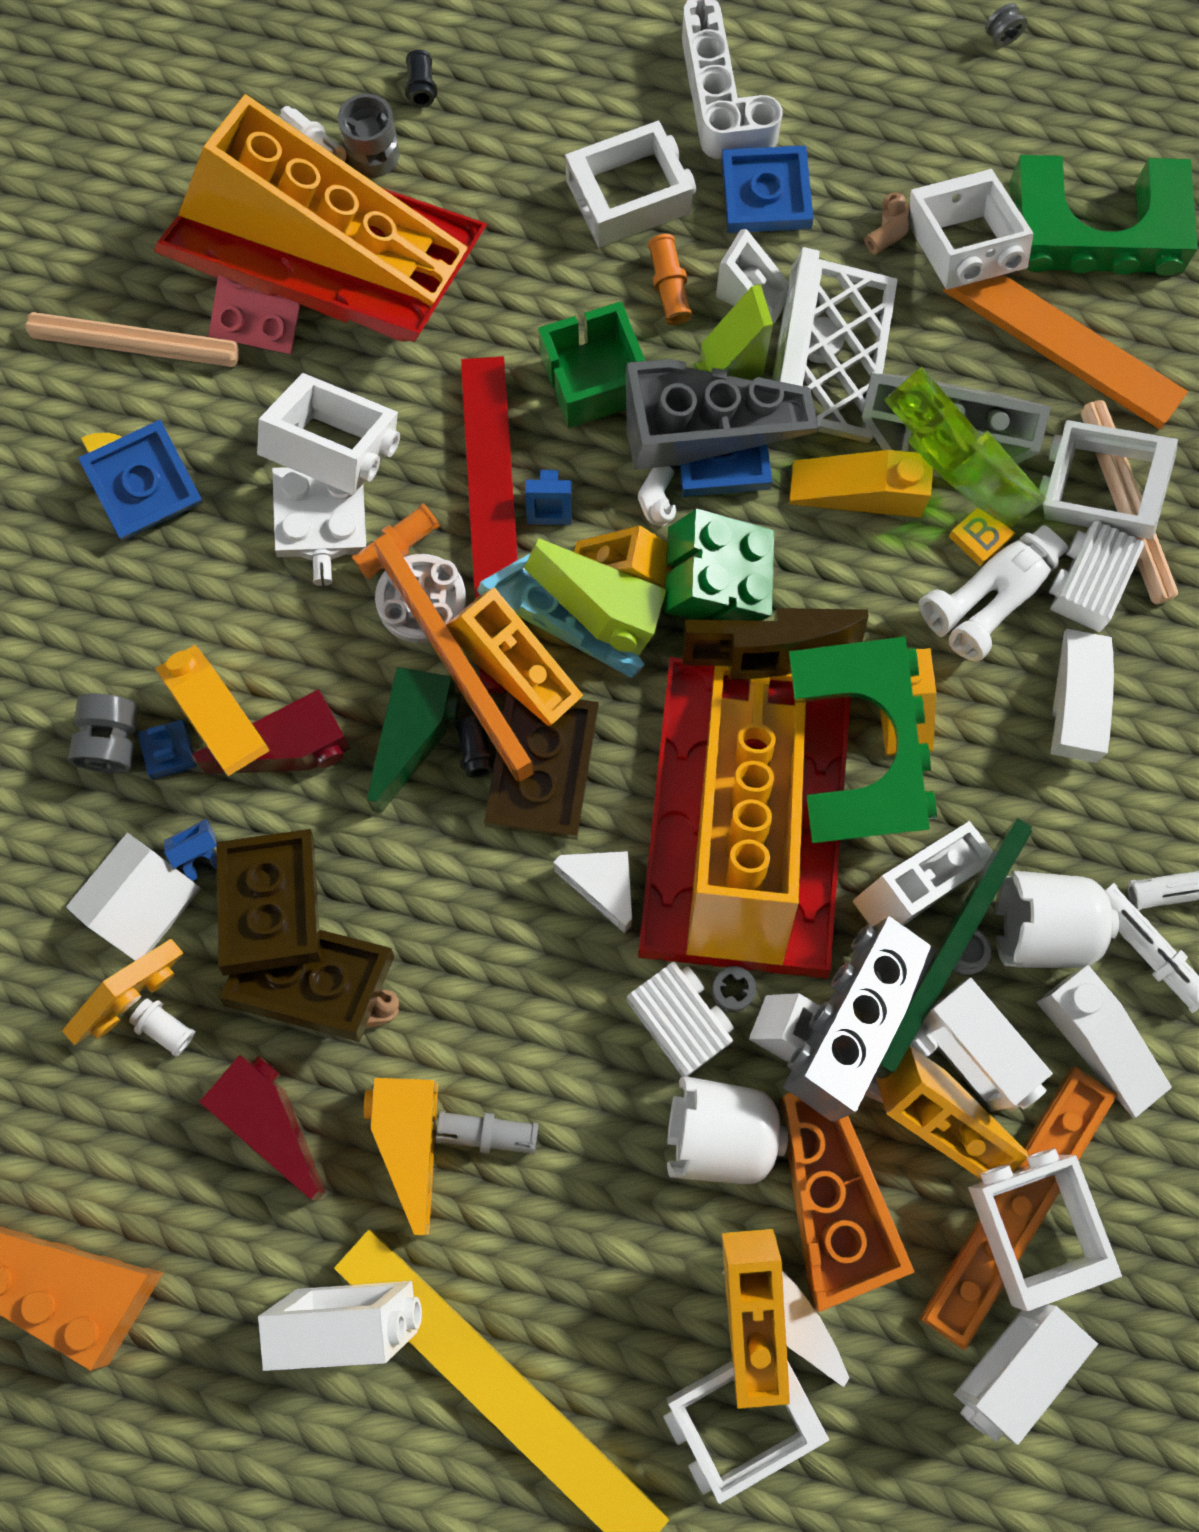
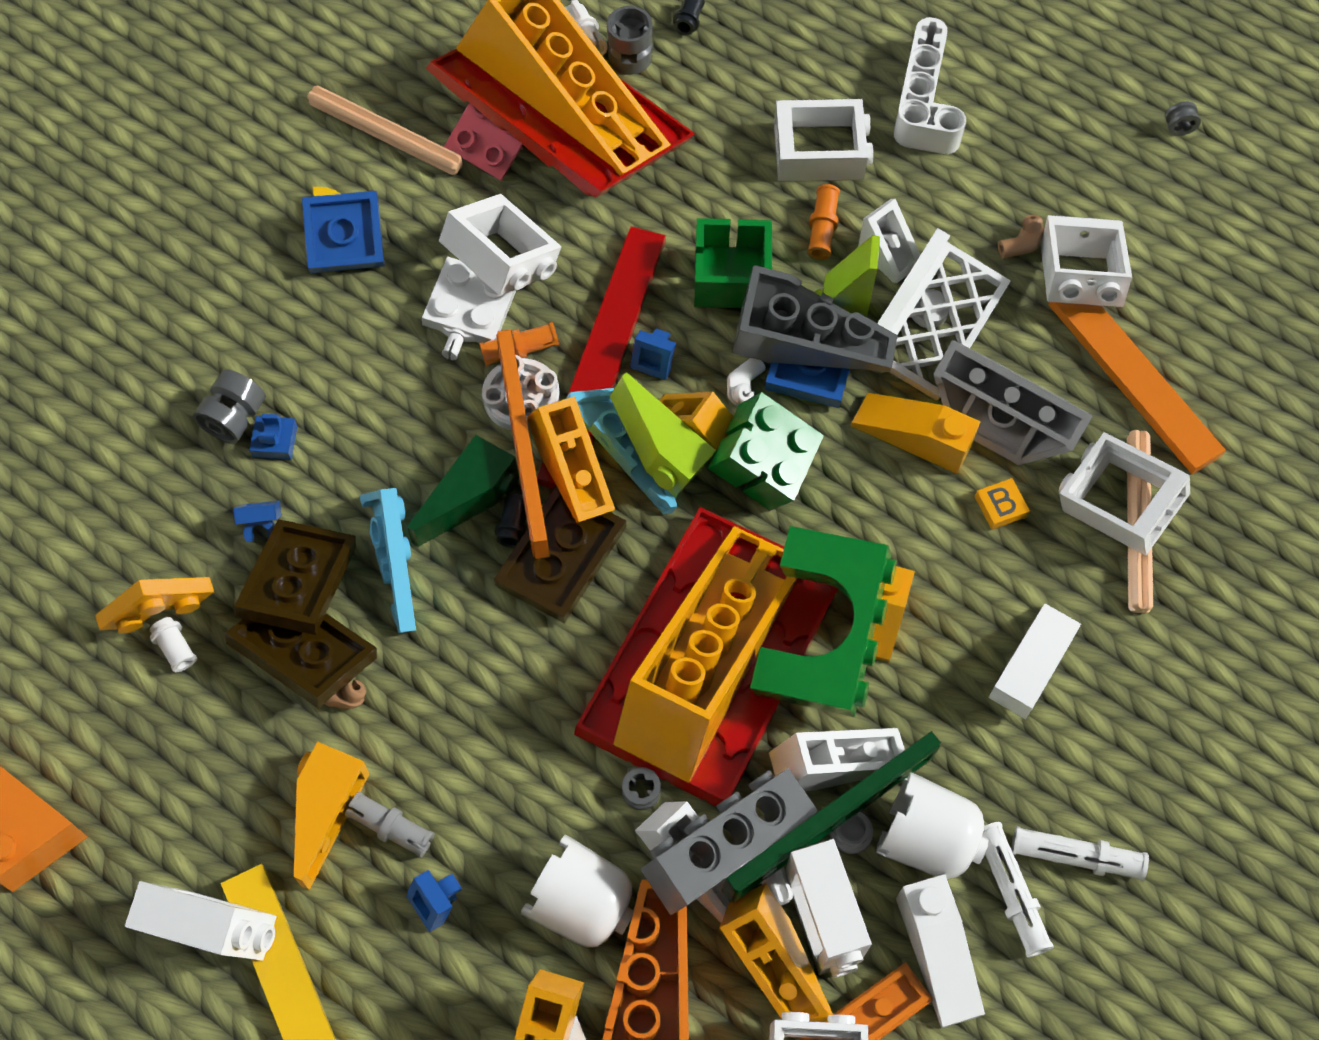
camera: 20 degrees right, 10 degrees down
(133, 898) = (197, 538): white slope -> none
(211, 709) = (316, 413): light orange slope -> none
(264, 1119) = (219, 743): dark red slope -> none
(297, 737) = (360, 461): dark red slope -> none
(358, 831) = (392, 551): none -> medium azure wing
(568, 1196) = (432, 898): none -> blue tile
(601, 881) = (569, 660): white slope -> none
(680, 1018) = (585, 792): white brick -> none
(763, 647) = (768, 519): dark brown slope -> none
(767, 189) = (932, 179): blue plate -> none
(960, 454) = (1003, 431): clear neon green slope -> none
(1013, 573) = (1015, 541): white piece -> none
(1096, 575) = (1085, 568): white brick -> none
(1158, 243) = (1242, 324): green arch -> none

